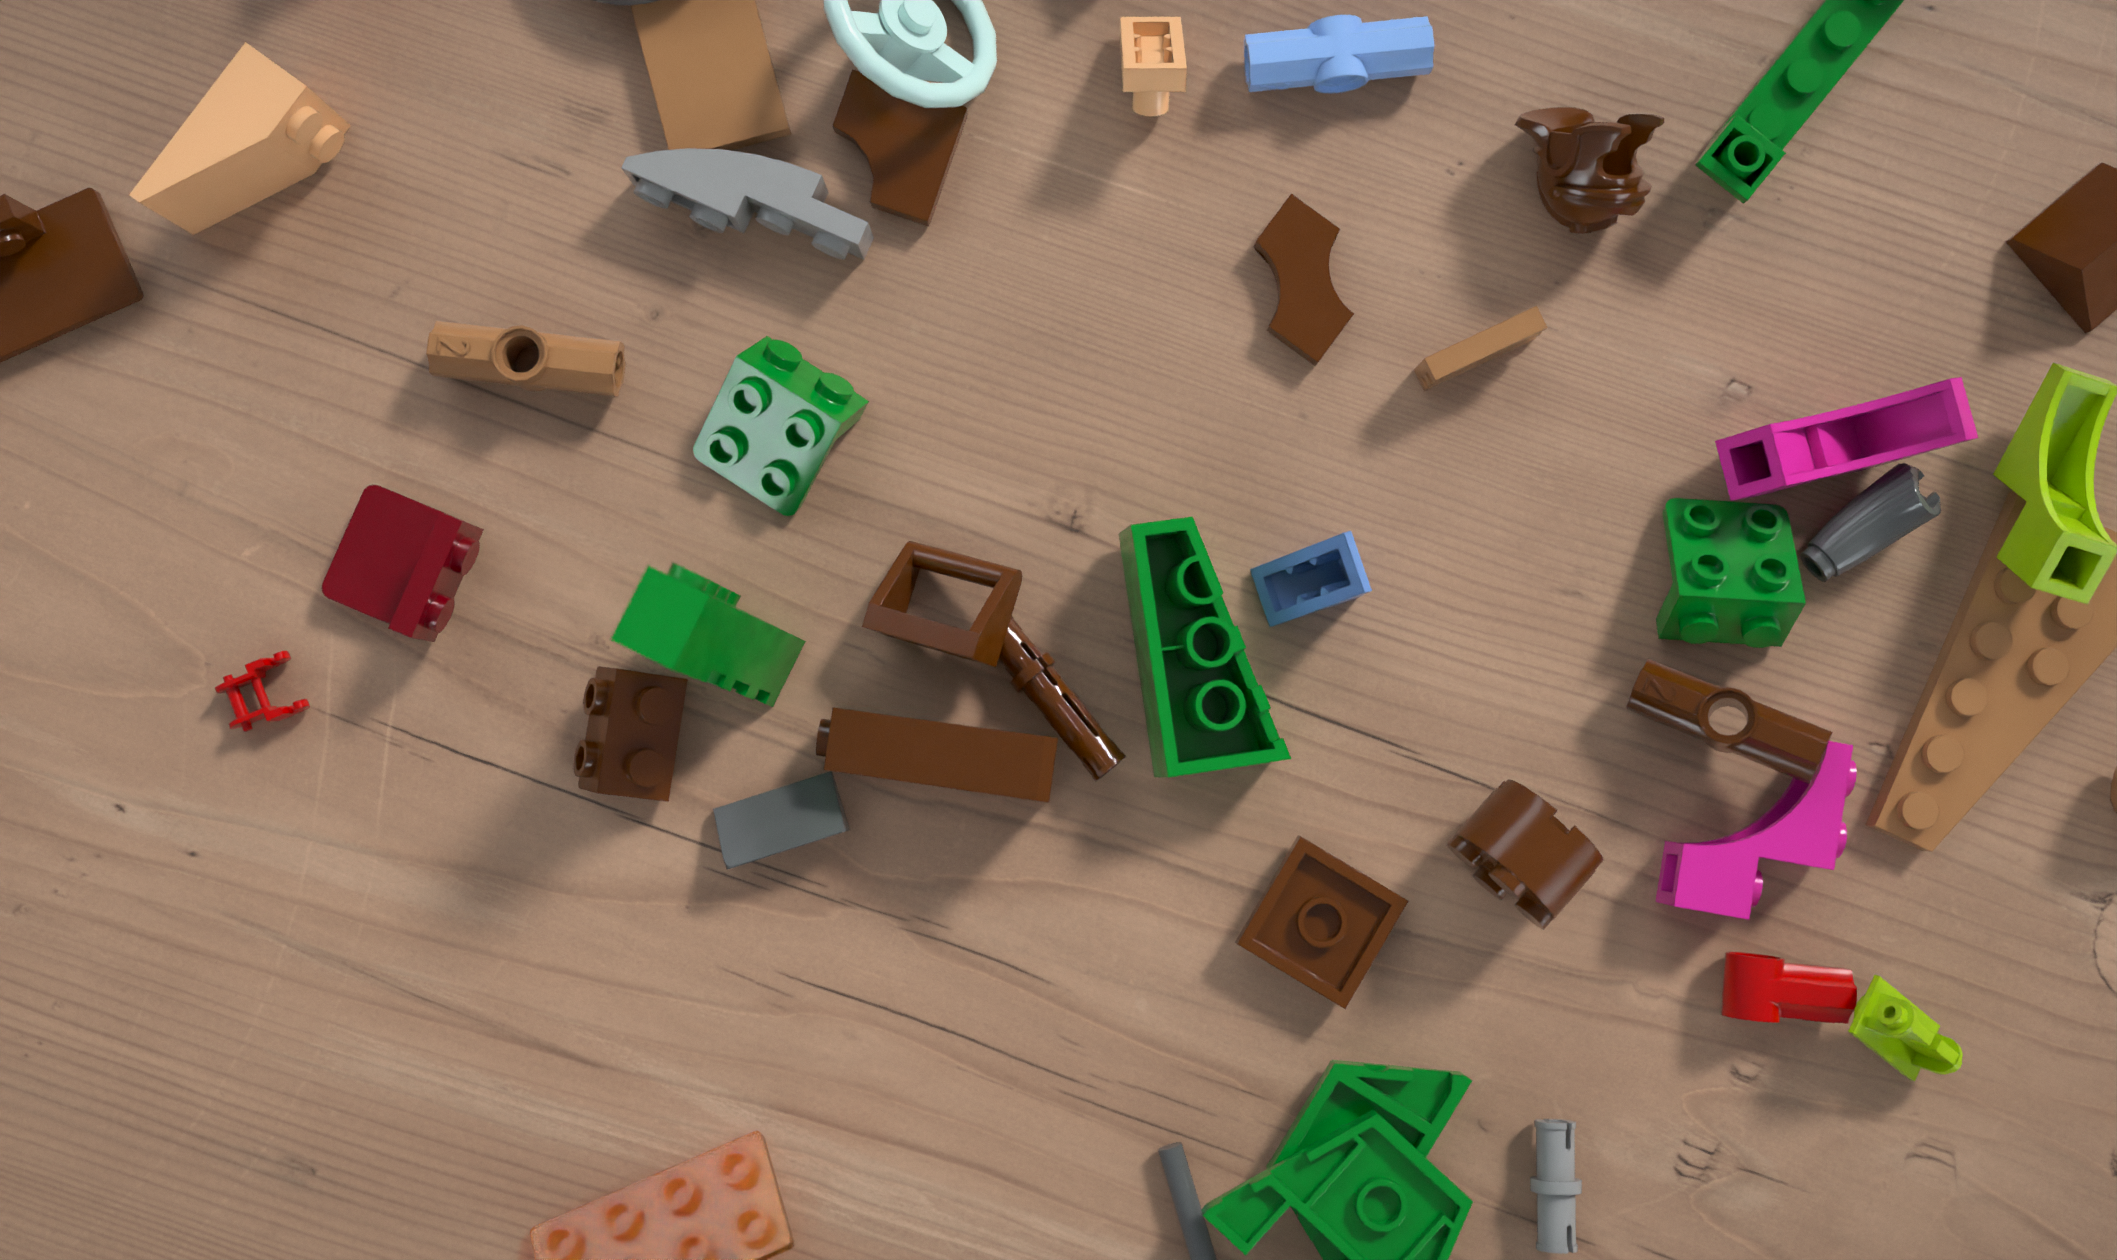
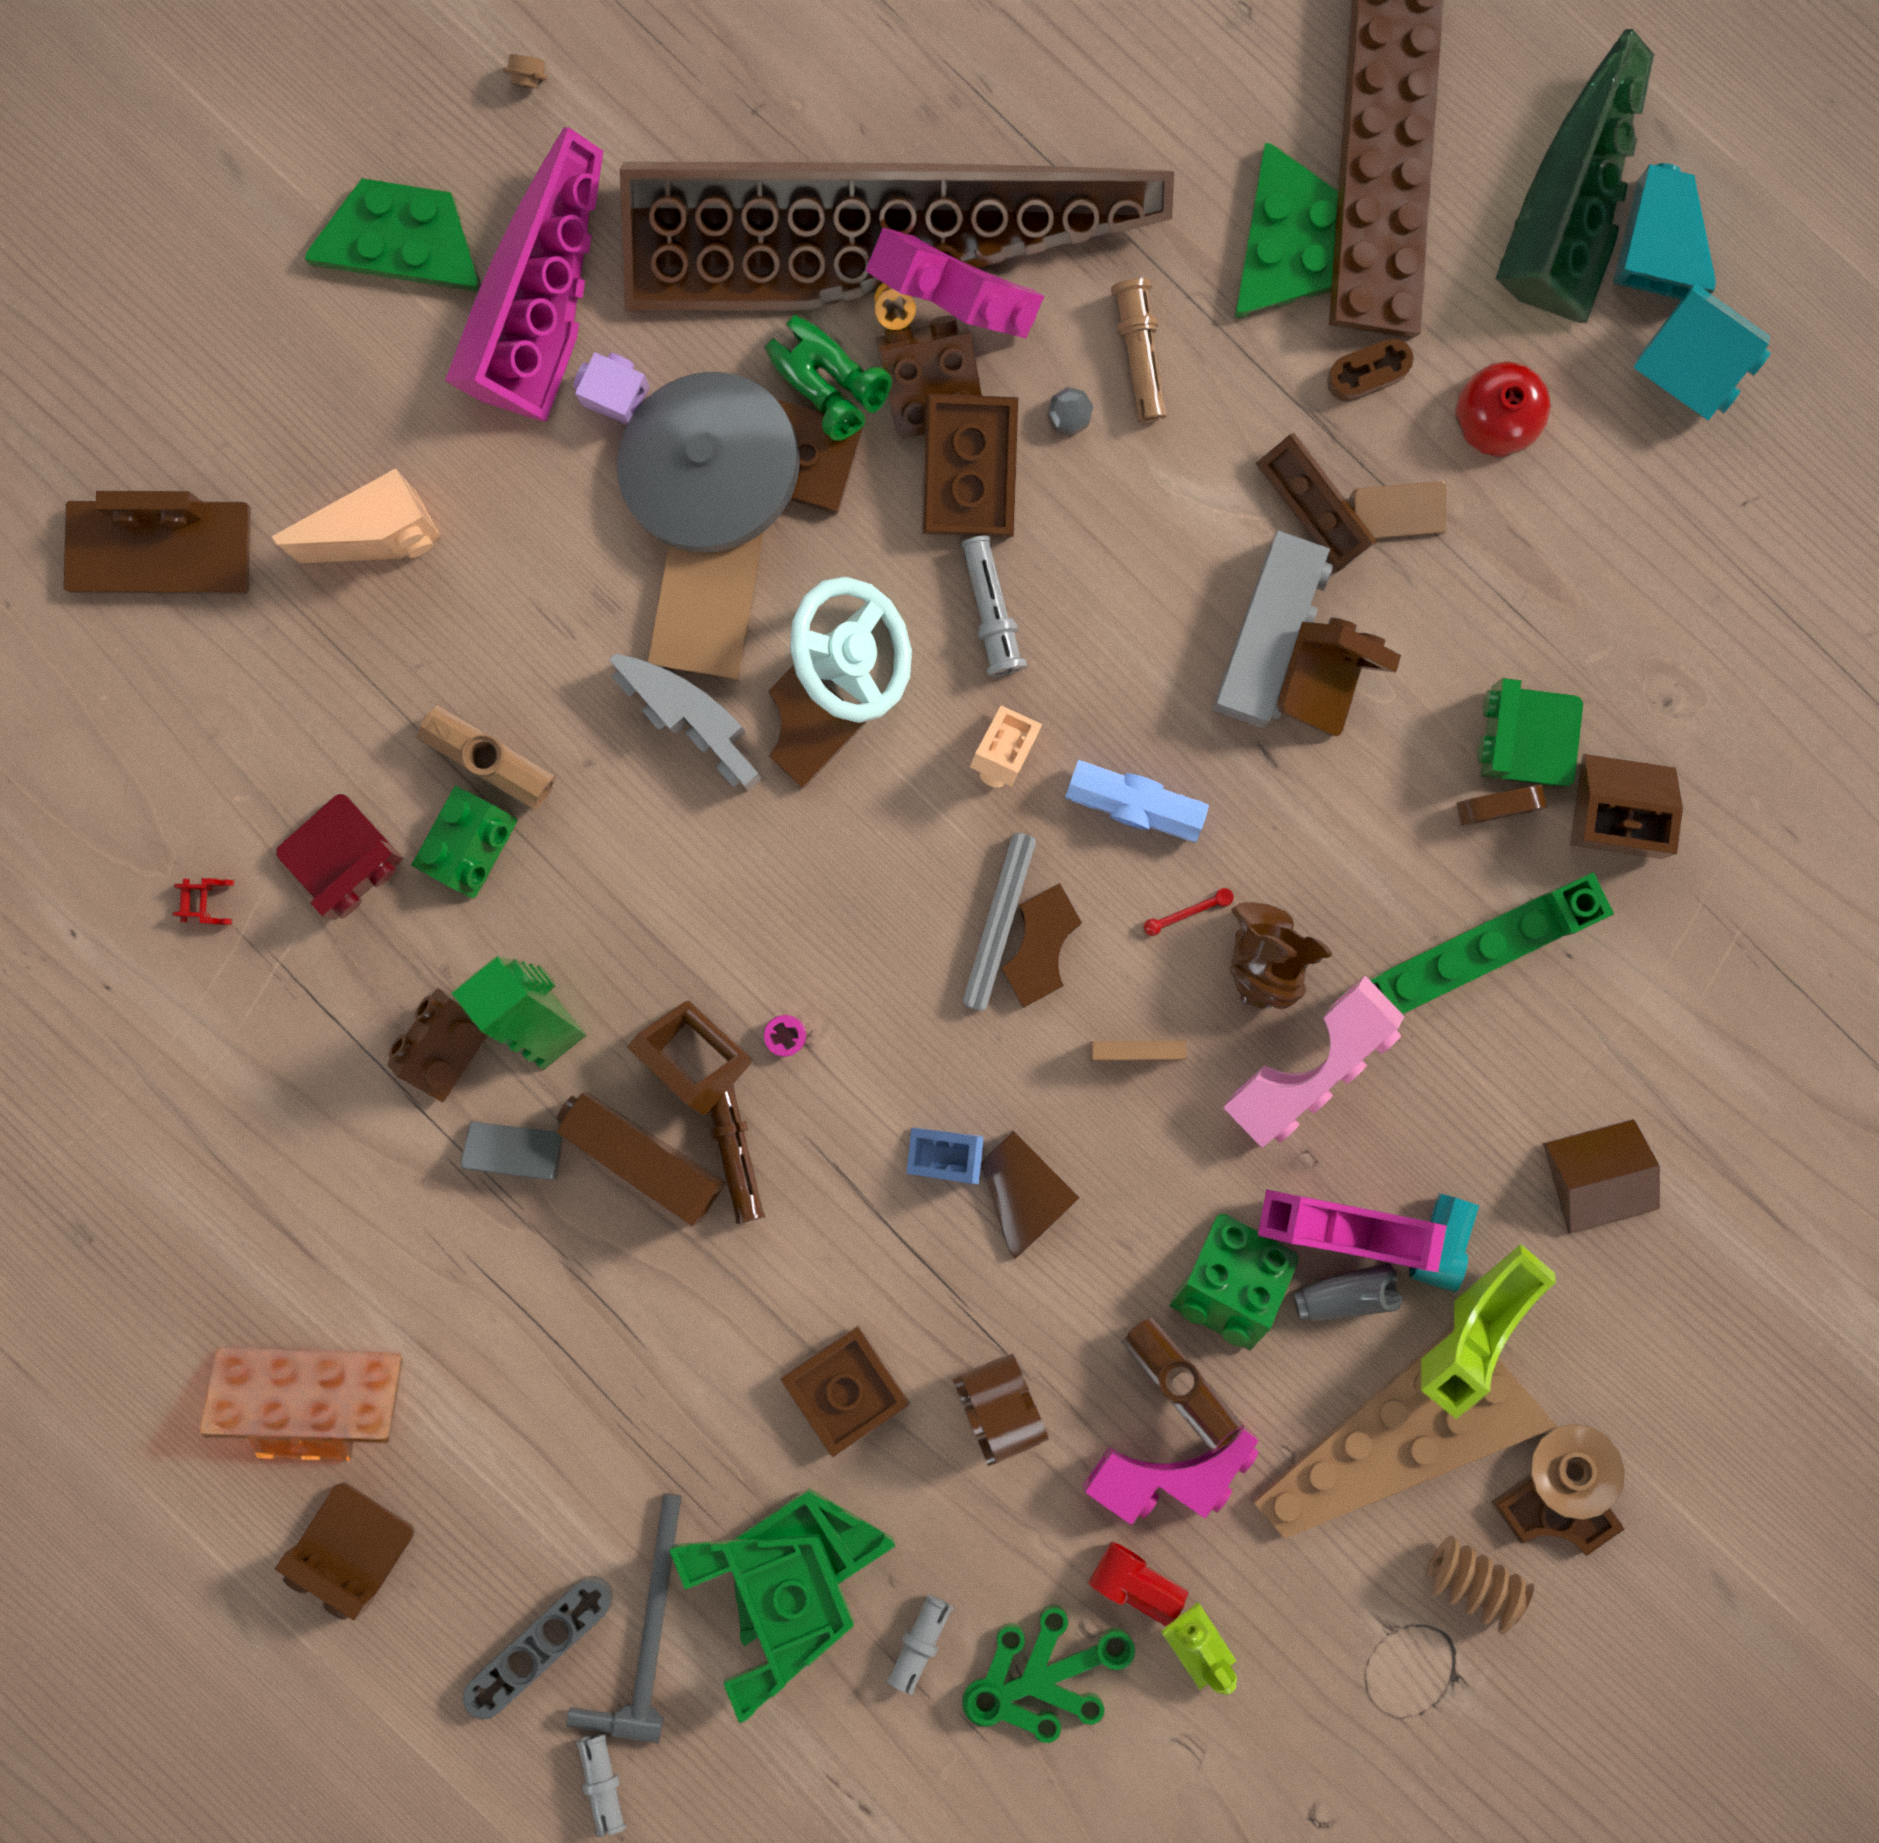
camera: 30 degrees right, 0 degrees up
(548, 474) = (464, 842): none -> green bracket
(776, 423) = (635, 879): green bracket -> none
(1044, 510) = (780, 1049): none -> dark pink bush
(1191, 658) = (837, 1179): green wedge -> none
(1239, 274) = (999, 921): none -> light grey axle
(1425, 581) = (1024, 1192): none -> reddish brown slope
(1490, 127) = (1222, 898): none -> red hinge
(1719, 1156) = (1041, 1679): none -> green plant
(1746, 183) = (1356, 1027): none -> bright pink arch
(1954, 362) = (1459, 1218): none -> teal piece

